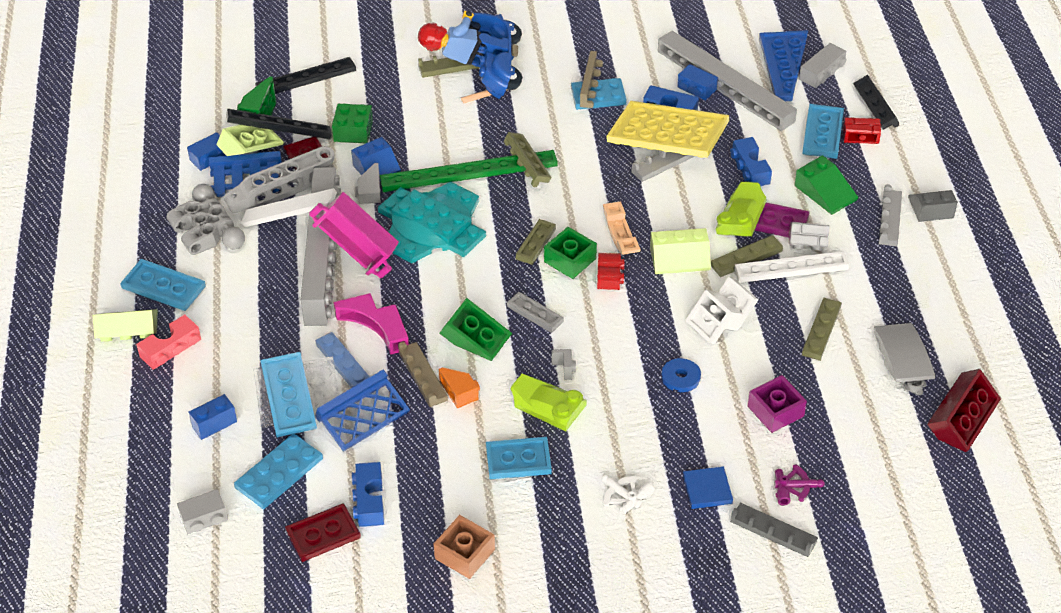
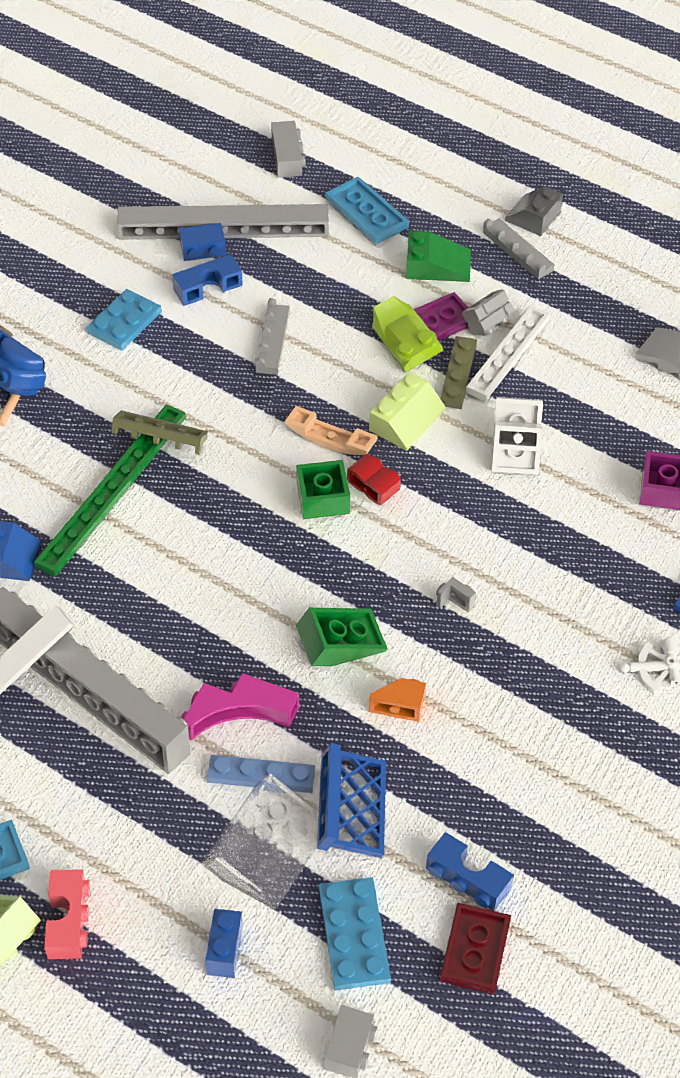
camera: 50 degrees left, 5 degrees up
(288, 394) = (278, 849): dark azure plate -> none
(356, 233) = (126, 634): dark pink container -> none
(369, 186) = (43, 580): light grey slope -> none
(422, 374) = (348, 718): dark tan hinge -> none
(432, 221) = (145, 567): teal plate -> none
(464, 546) = (617, 836): nougat brick -> none
(518, 458) = (538, 716): dark azure plate -> none
(535, 241) = (271, 505): olive plate -> none
(535, 312) = (360, 572): light grey tile -> none
(547, 401) = (490, 643): lime slope -> none
(588, 81) = (110, 310): dark tan hinge -> none
(668, 129) = (244, 304): light yellow plate -> none
(681, 366) = (558, 512): blue tile -> none
(746, 154) = (363, 290): blue arch -> none
(783, 60) = (246, 167): blue wing -> none
(821, 329) = (600, 388): olive plate -> none
(861, 130) = (399, 185): red brick -> none
(876, 102) = (372, 152): black hinge -> none

